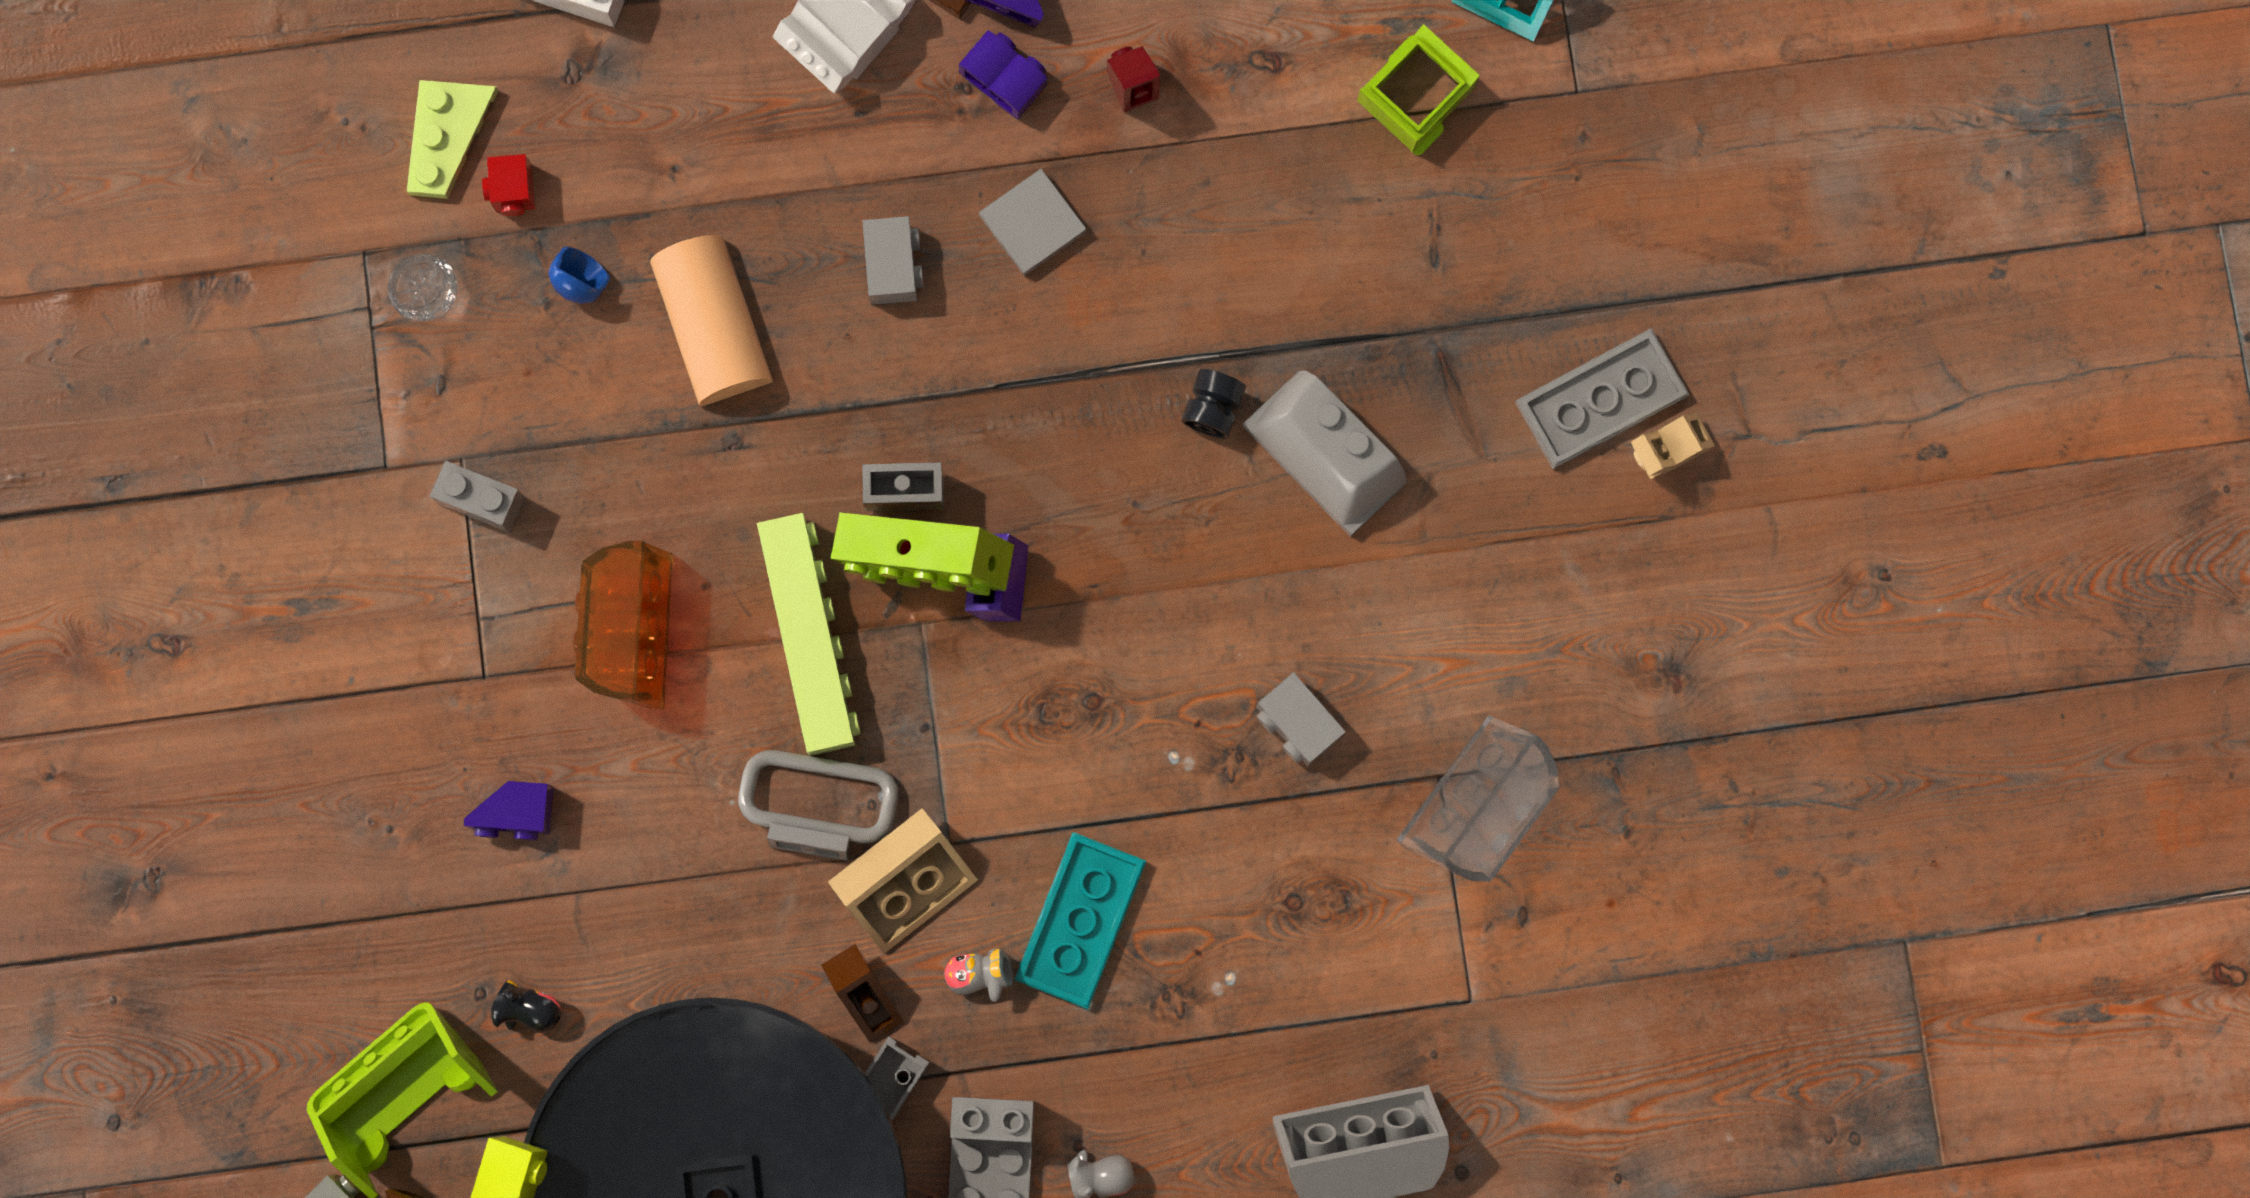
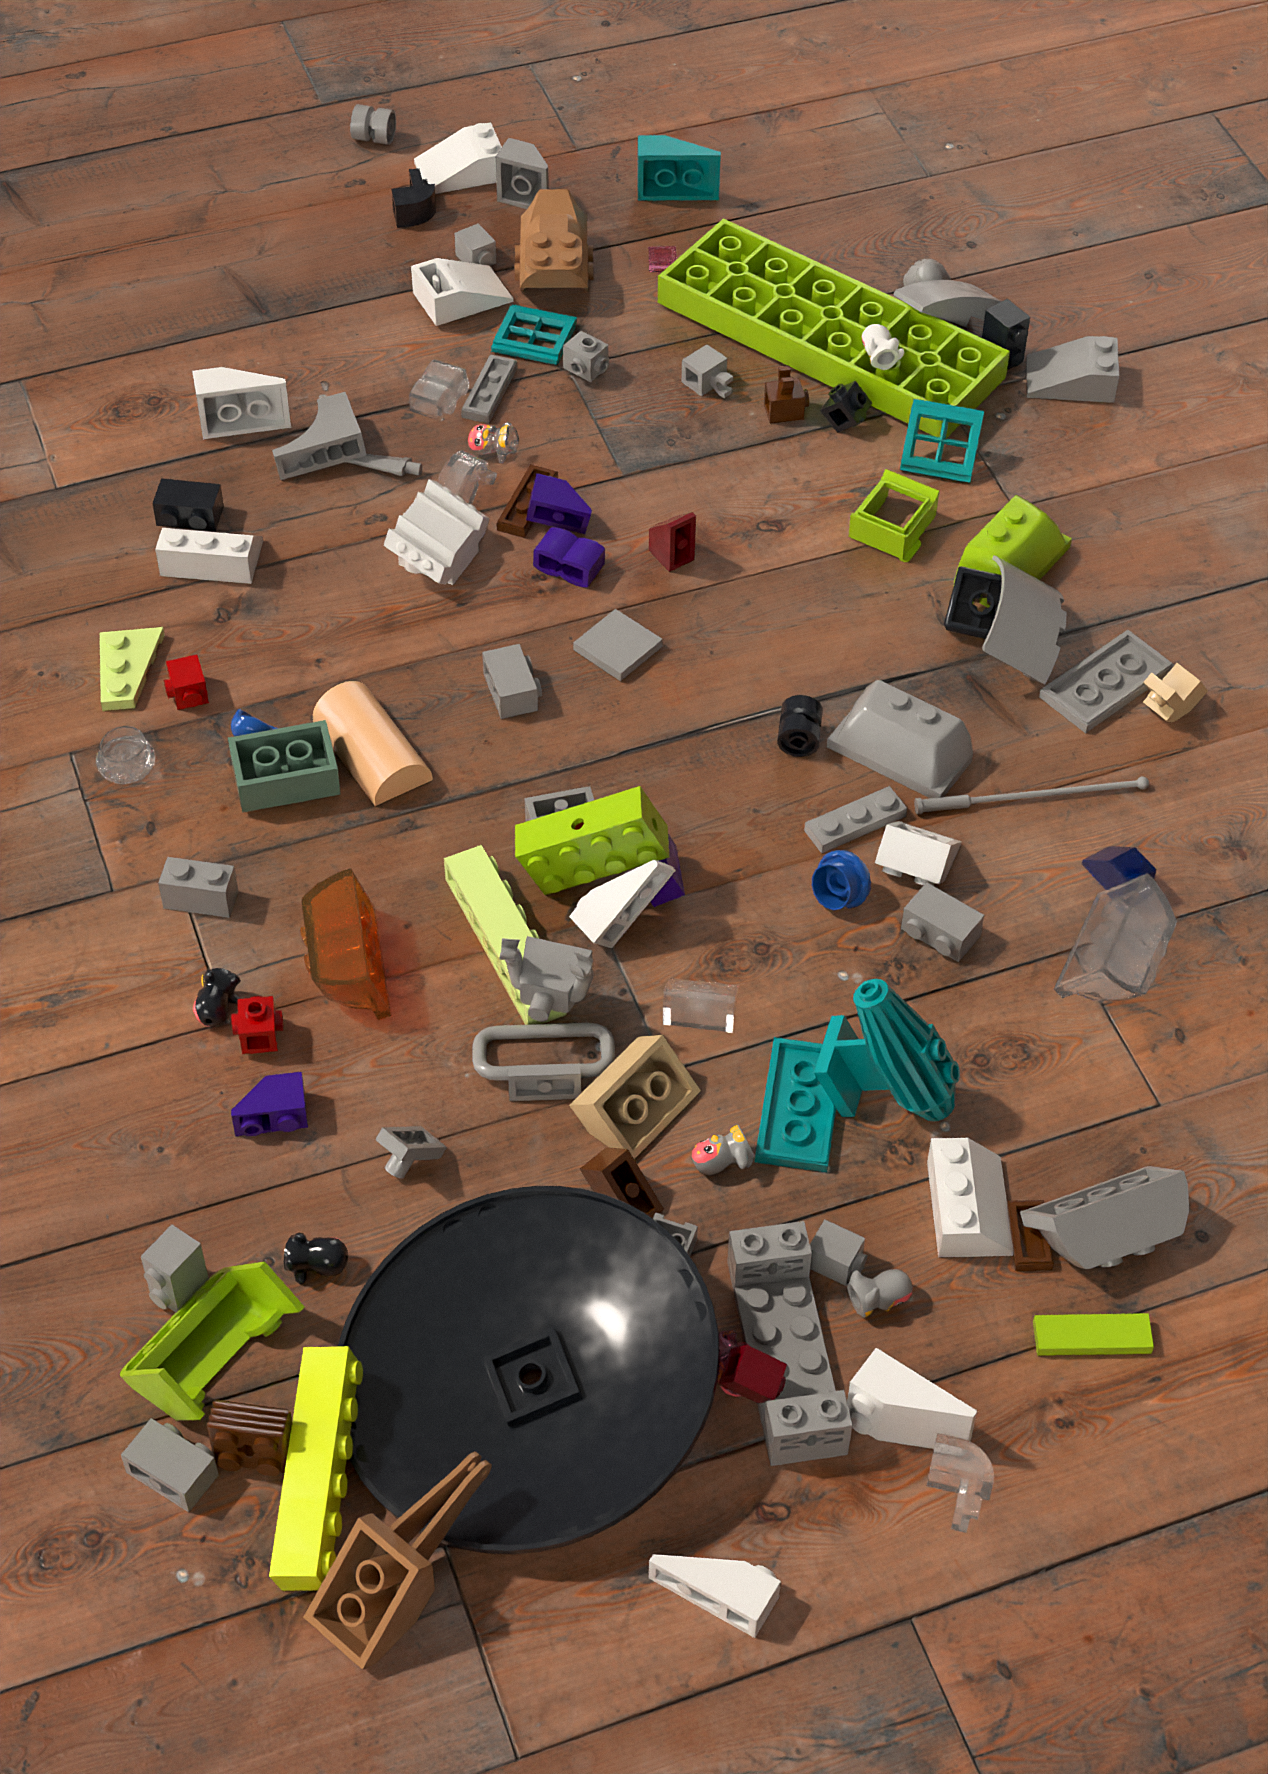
camera: 10 degrees left, 30 degrees down
(374, 1006) = (174, 1268): none -> light grey brick
(470, 656) = (214, 998): none -> black animal
(522, 712) = (257, 1024): none -> red brick
(600, 343) = (284, 766): none -> sand green brick
(648, 898) = (408, 1145): none -> light grey tile
(835, 728) = (548, 975): none -> light grey torso
(929, 634) = (615, 905): none -> white slope
(1004, 765) = (699, 1004): none -> clear slope
(1067, 1122) = (837, 1252): none -> light grey brick
(1178, 920) = (896, 1055): none -> teal piece
(1199, 643) = (841, 880): none -> blue piece
(1226, 1086) = (968, 1199): none -> white slope
(1245, 545) = (855, 819): none -> light grey plate
(1268, 1155) = (1029, 1245): none -> reddish brown tile
(1301, 613) = (916, 853): none -> white slope
(1379, 546) = (965, 801): none -> light grey piece
(1457, 267) = (971, 587): none -> black brick
(1523, 688) = (1117, 865): none -> clear blue slope
(1524, 310) = (1026, 623): none -> light grey panel
(1543, 187) = (1020, 537): none -> lime windscreen

